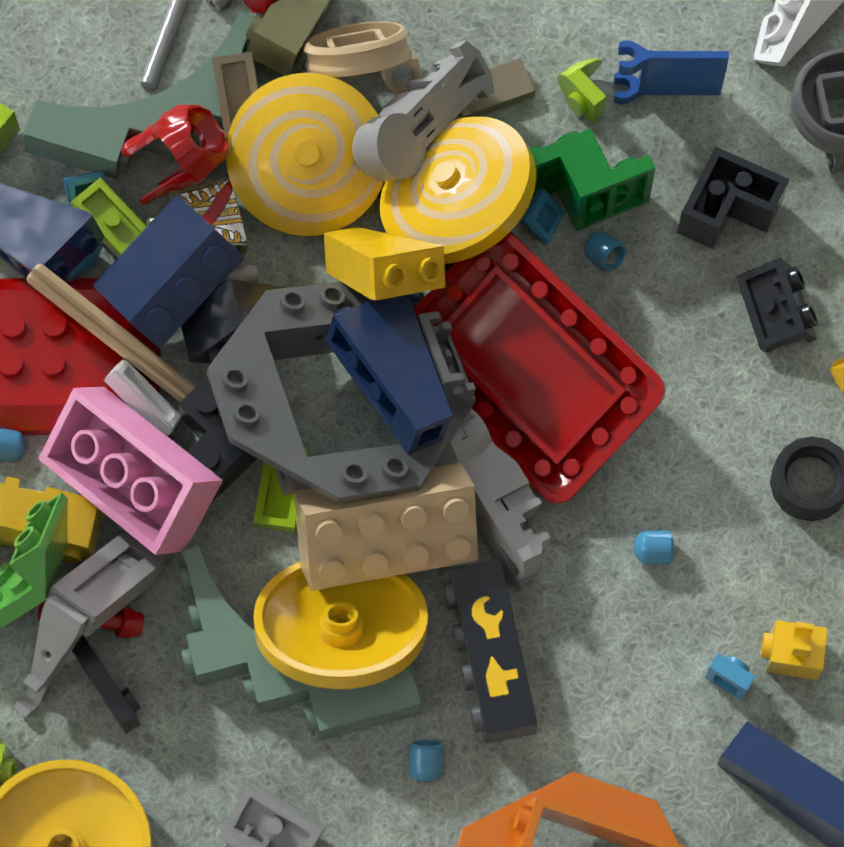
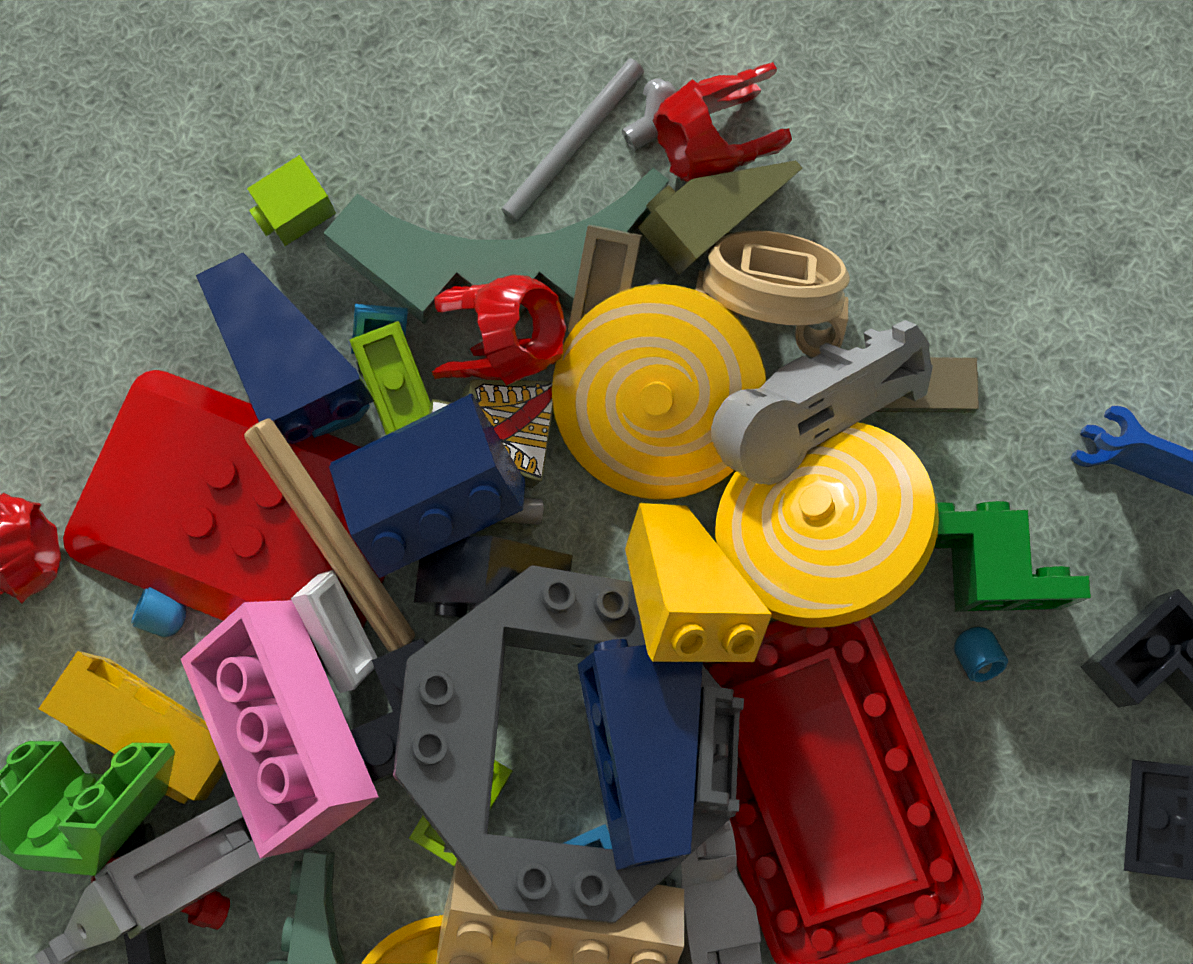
camera: 25 degrees right, 10 degrees up
(543, 216) = (927, 586): dark azure slope -> none
(581, 92) = (1035, 436): lime plate -> none

